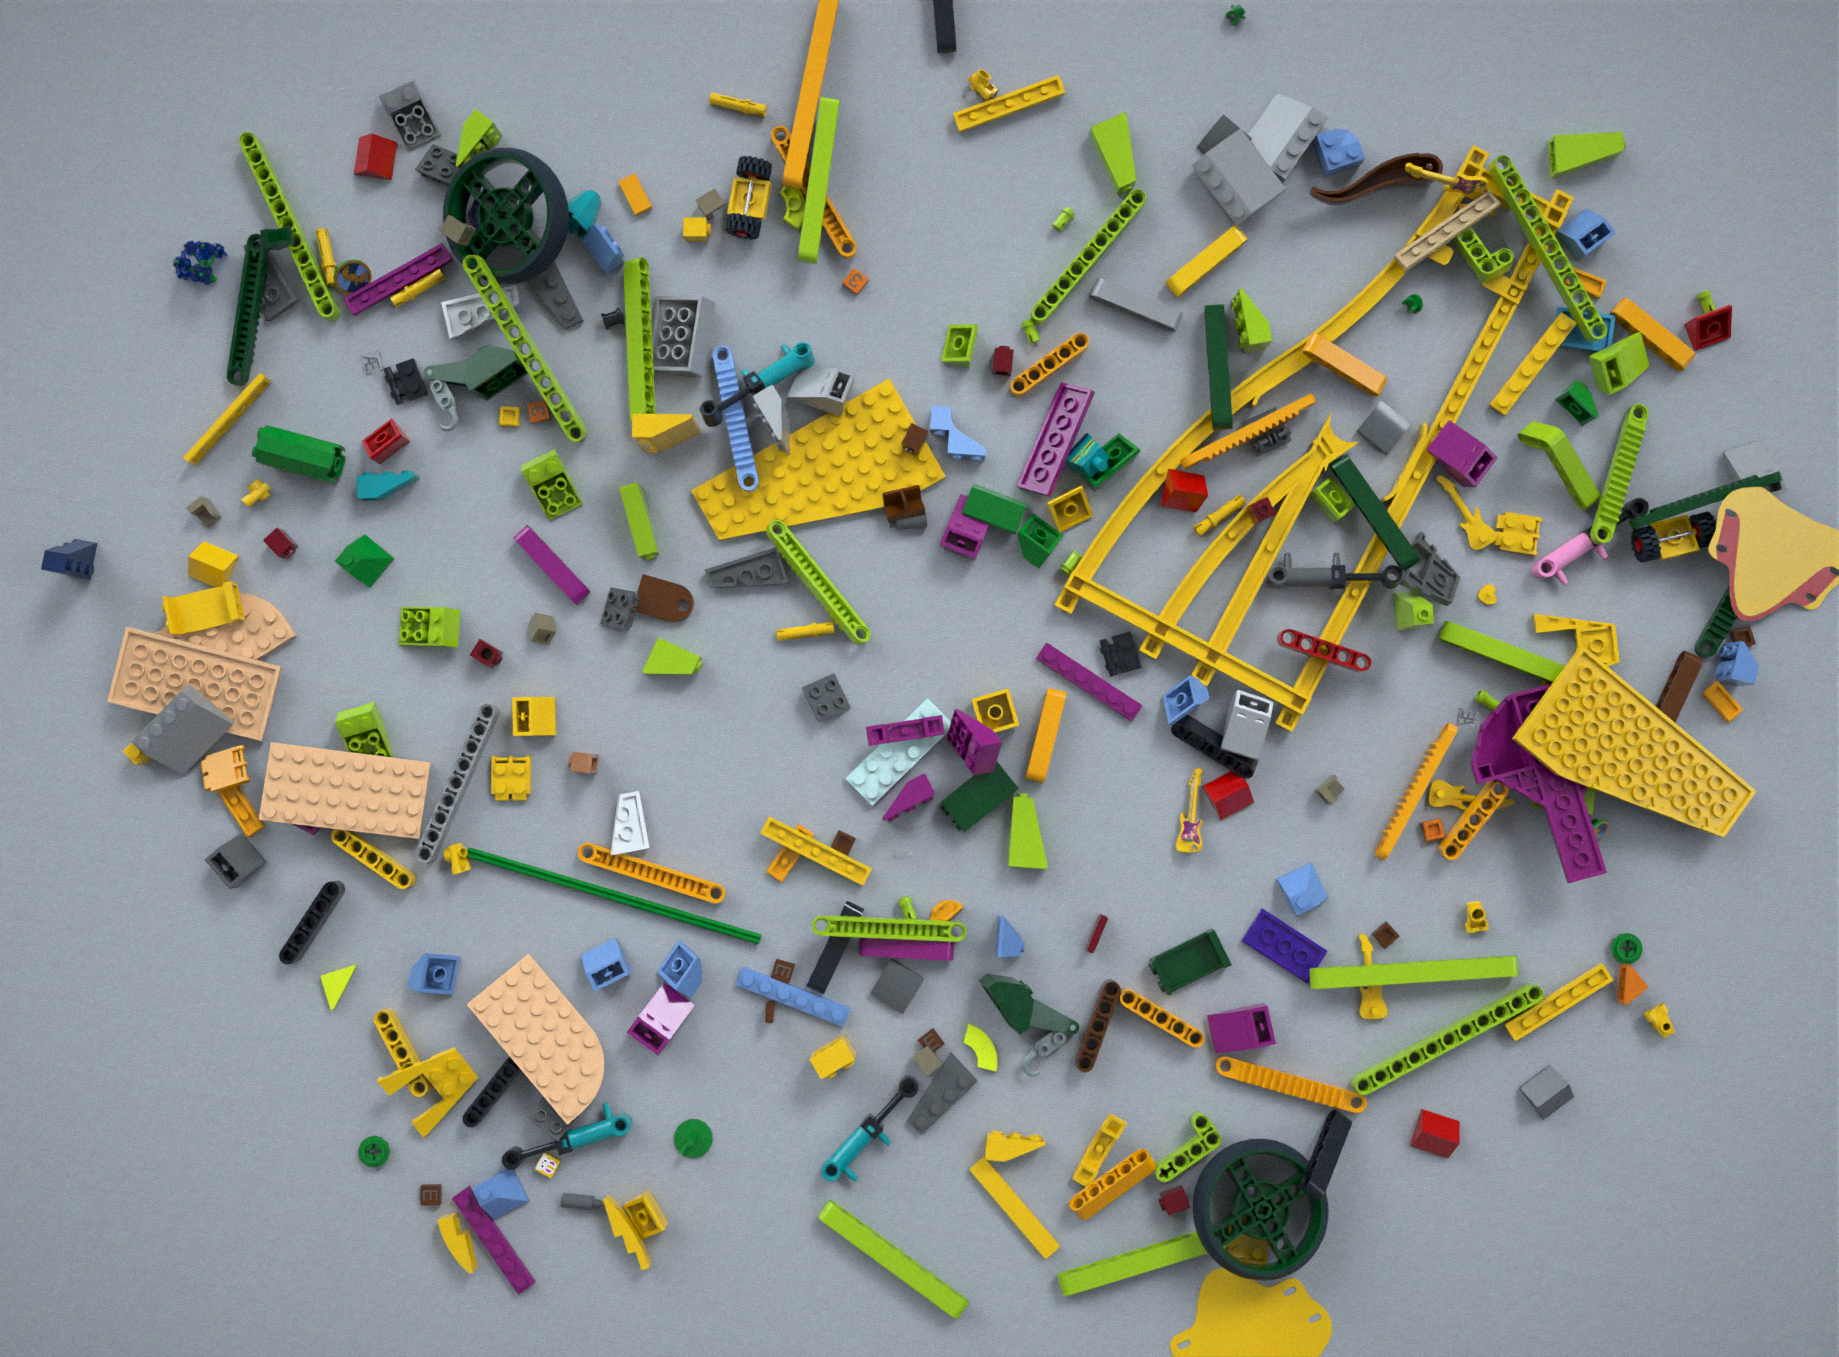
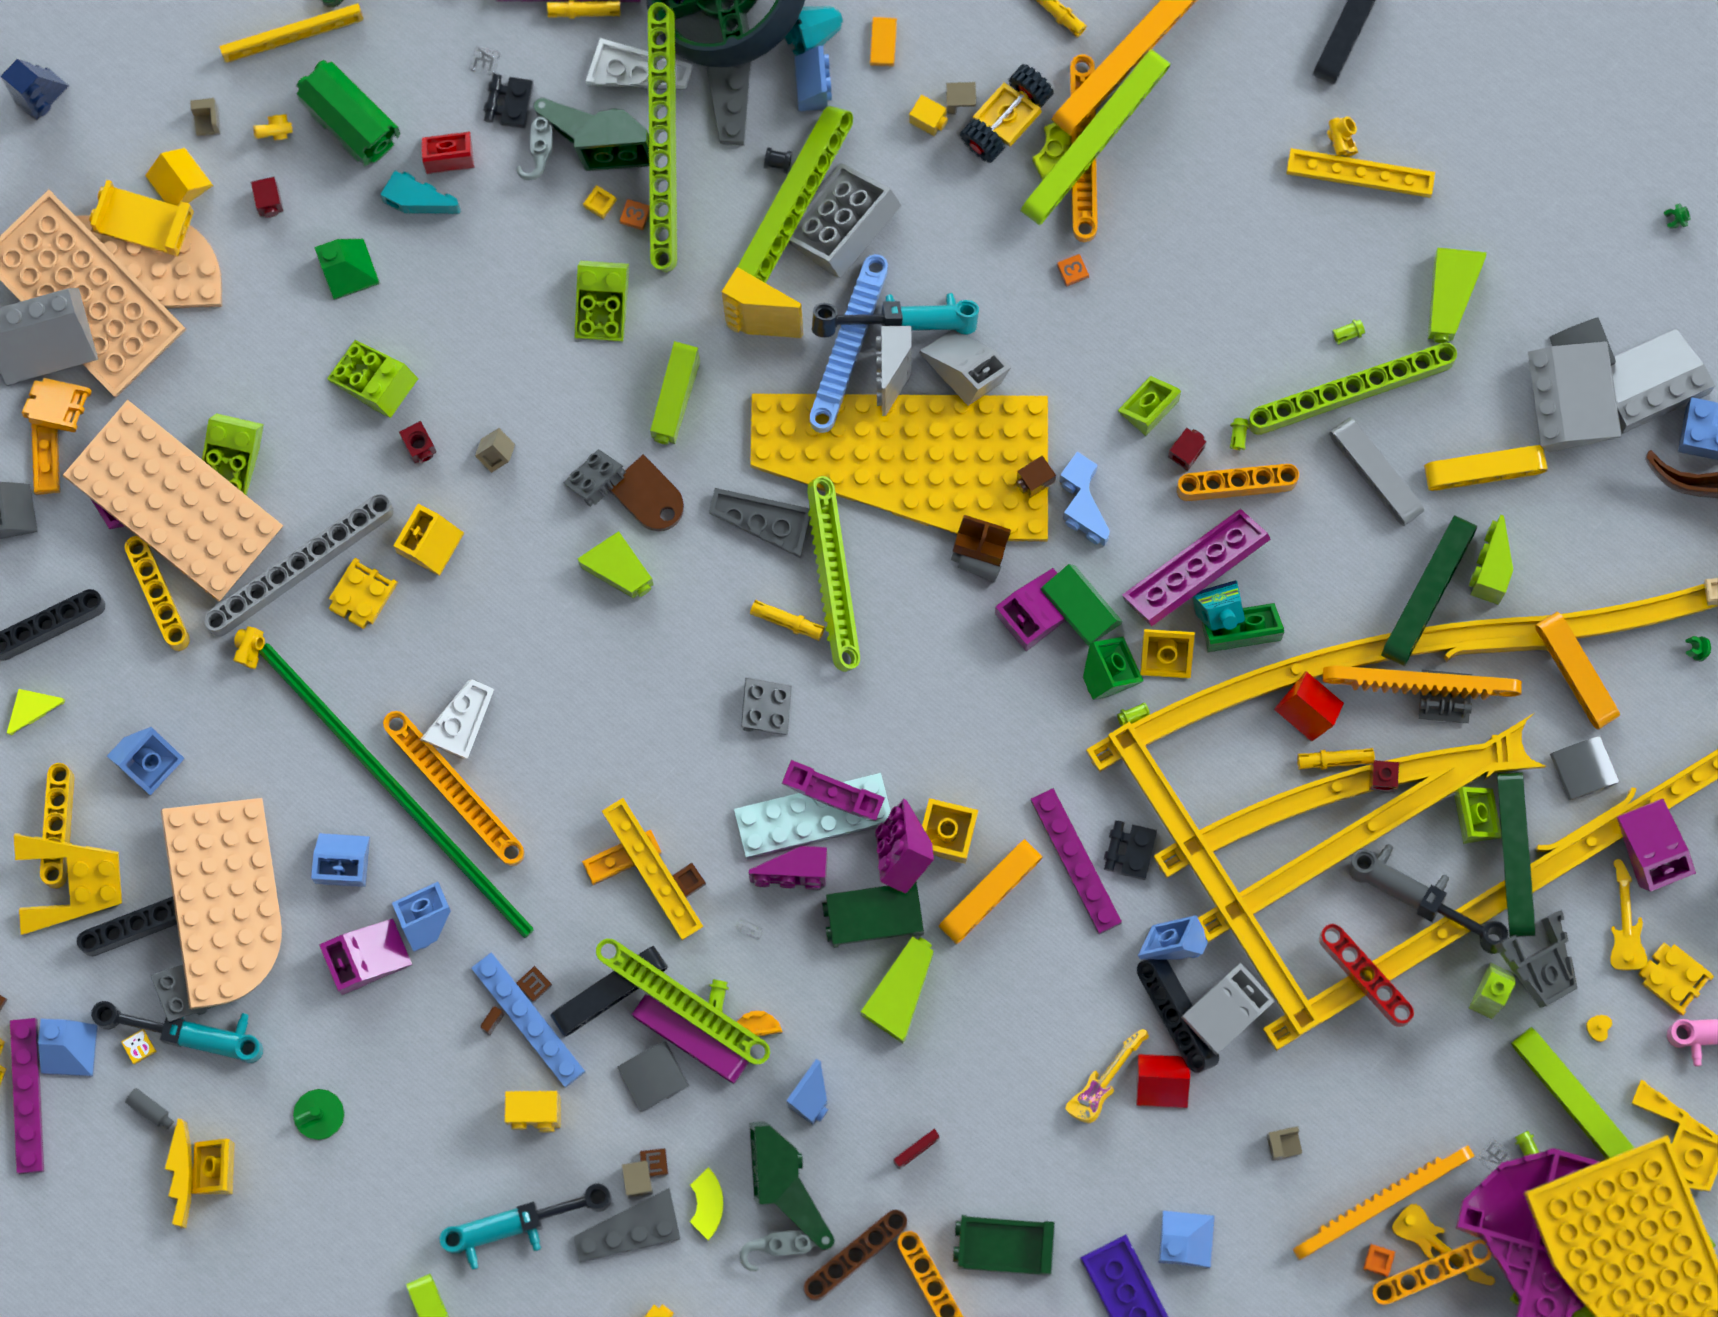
camera: 30 degrees right, 10 degrees down
(551, 564) = (548, 387): magenta beam -> none
(583, 762) = (453, 622): nougat slope -> none

